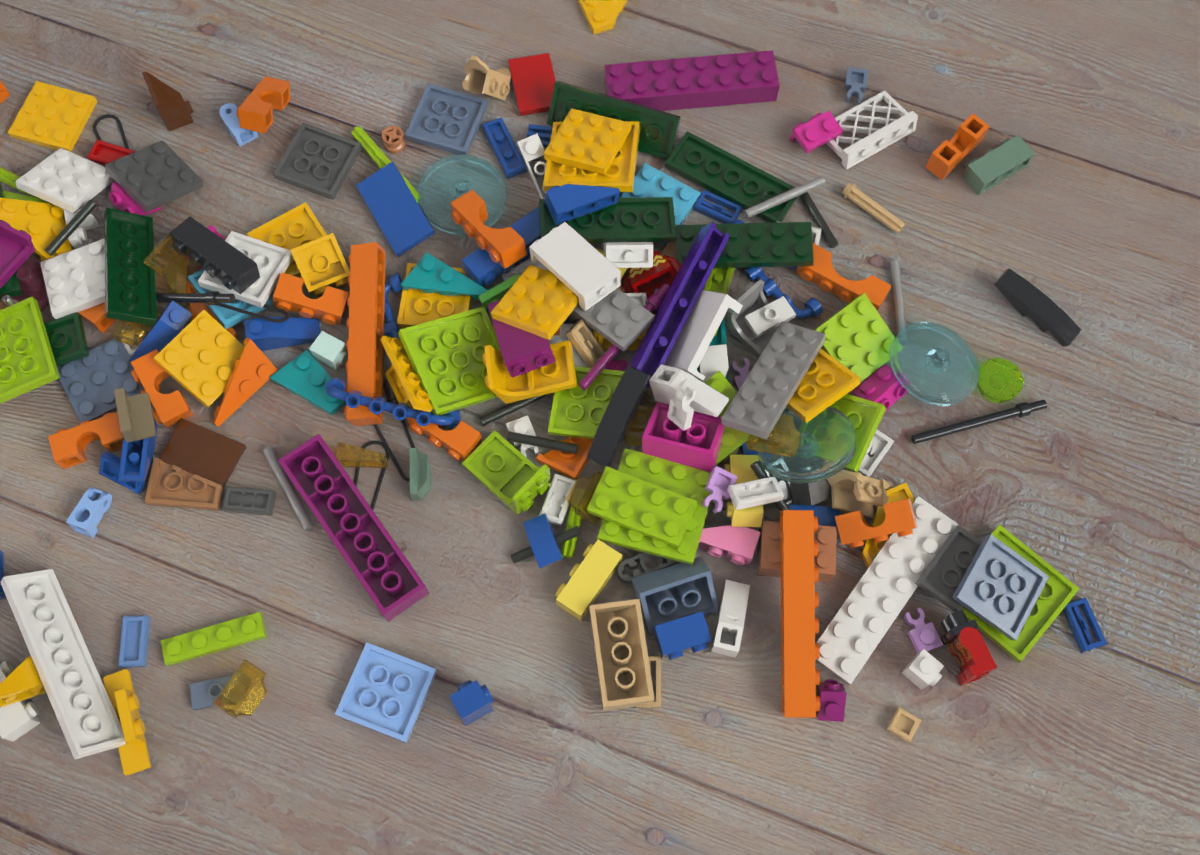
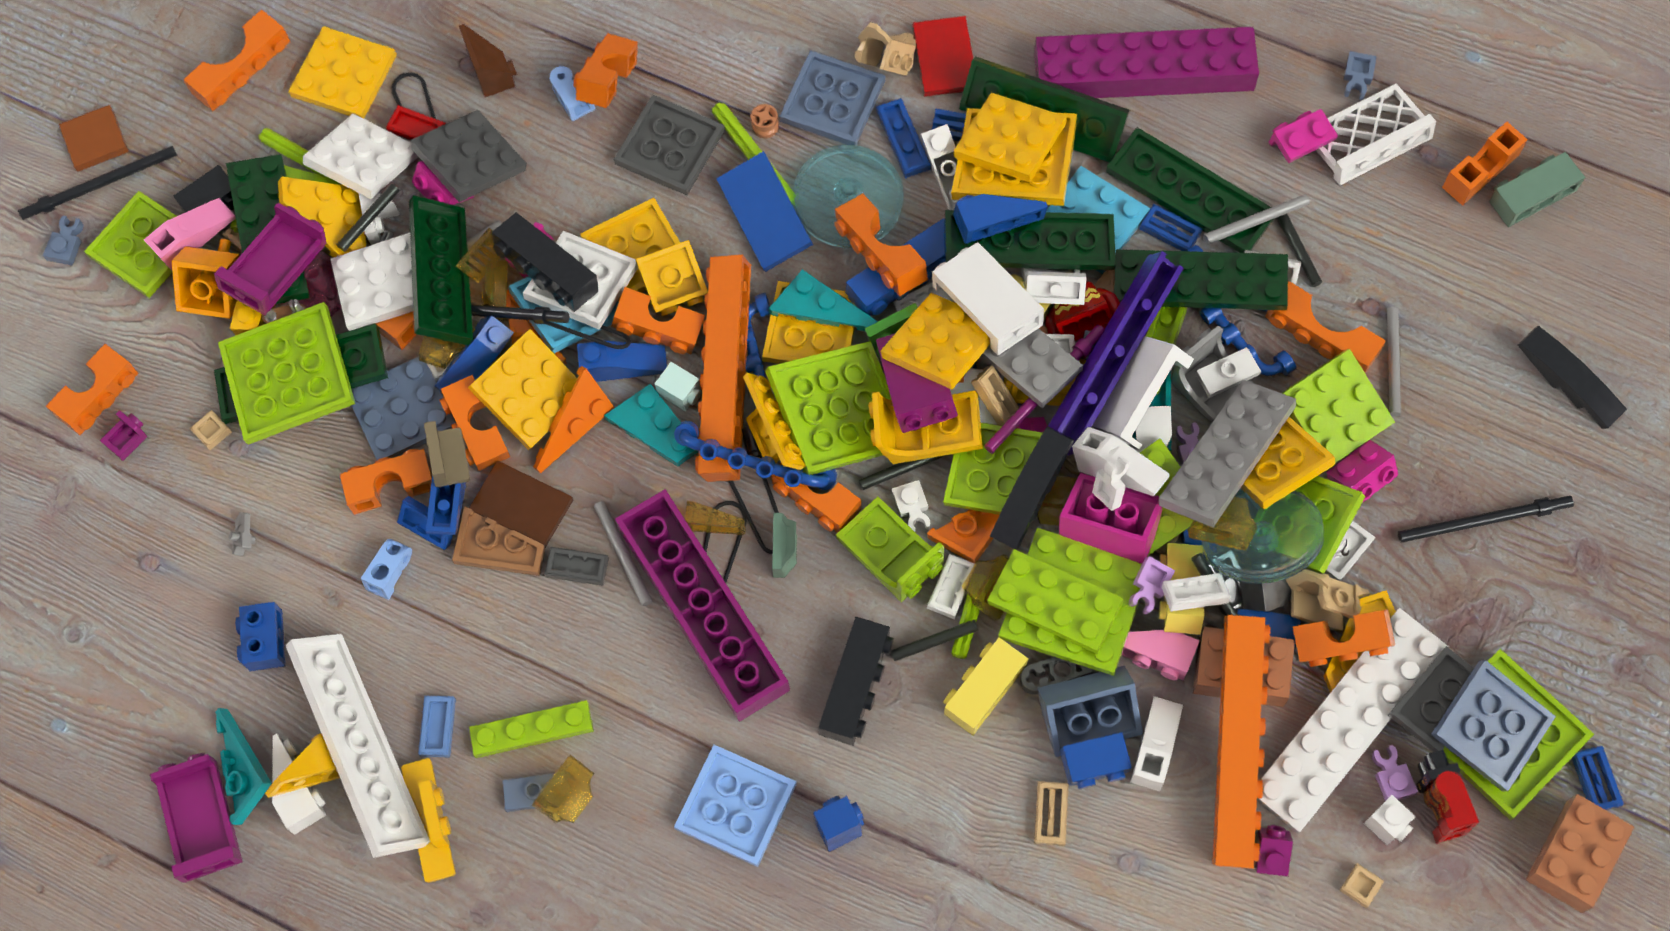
camera: 10 degrees right, 0 degrees up
(481, 582) = (854, 681): none -> black brick
(542, 442) = (936, 515): pearl dark grey bar -> none
(542, 540) = (931, 635): blue slope -> none
(621, 654) = (1020, 778): tan slope -> none
(873, 208) = (1370, 238): tan axle -> none
(934, 363) = (1433, 442): clear light blue dish -> none
(999, 380) = (1515, 468): clear neon green tile -> none
(1076, 687) = (1580, 853): none -> nougat brick

